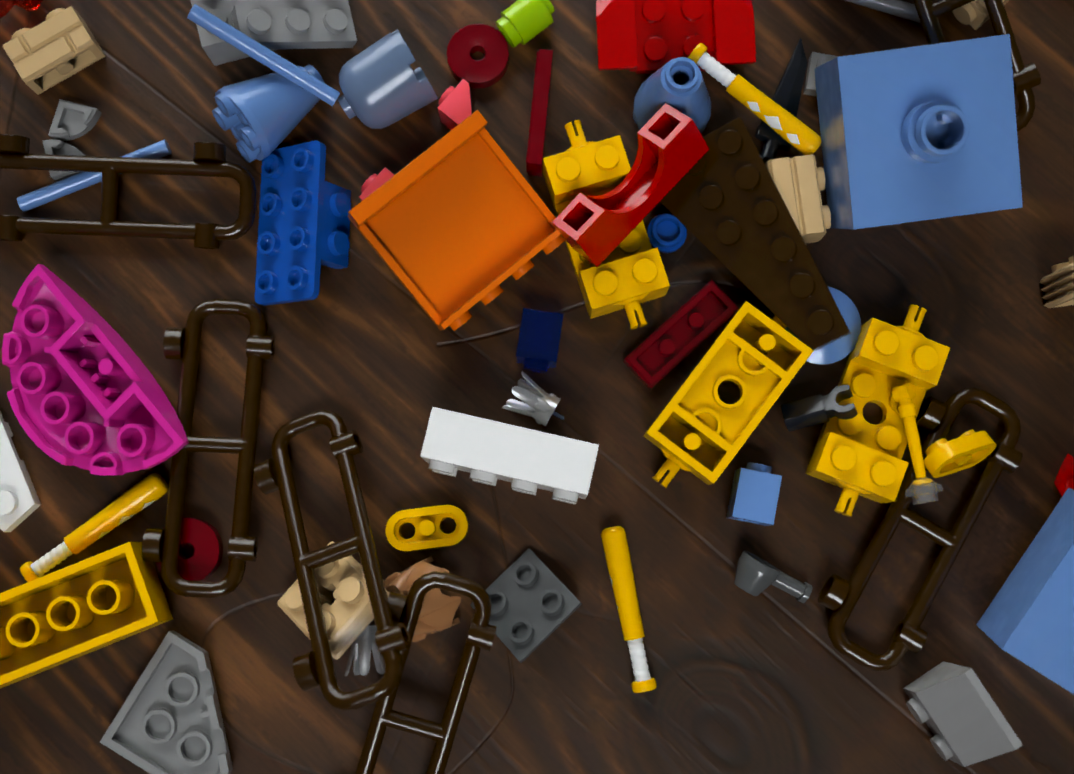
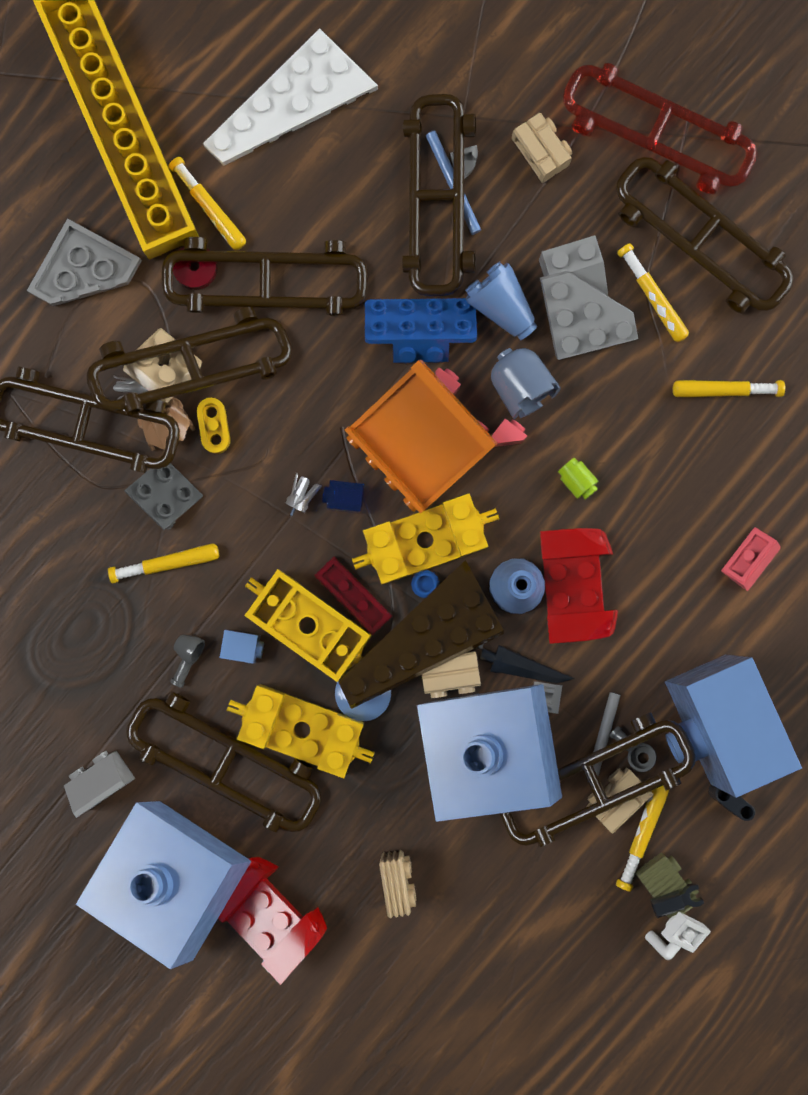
camera: 85 degrees right, 5 degrees up
(72, 120) = (492, 164): light grey tile -> none
(83, 386) = (302, 189): dark pink brick -> none
(263, 54) = (533, 295): medium blue bar -> none
(475, 39) = (551, 459): dark red piece -> none
(510, 454) = (261, 477): white brick -> none
(539, 112) = (508, 491): dark red tile -> none
(665, 153) = (423, 534): red arch -> none
(766, 109) = (512, 654): yellow piece -> none
(818, 409) = (301, 689): black bar -> none
(921, 489) = (246, 759): yellow piece -> none
(958, 454) = (275, 791): yellow plate -> none

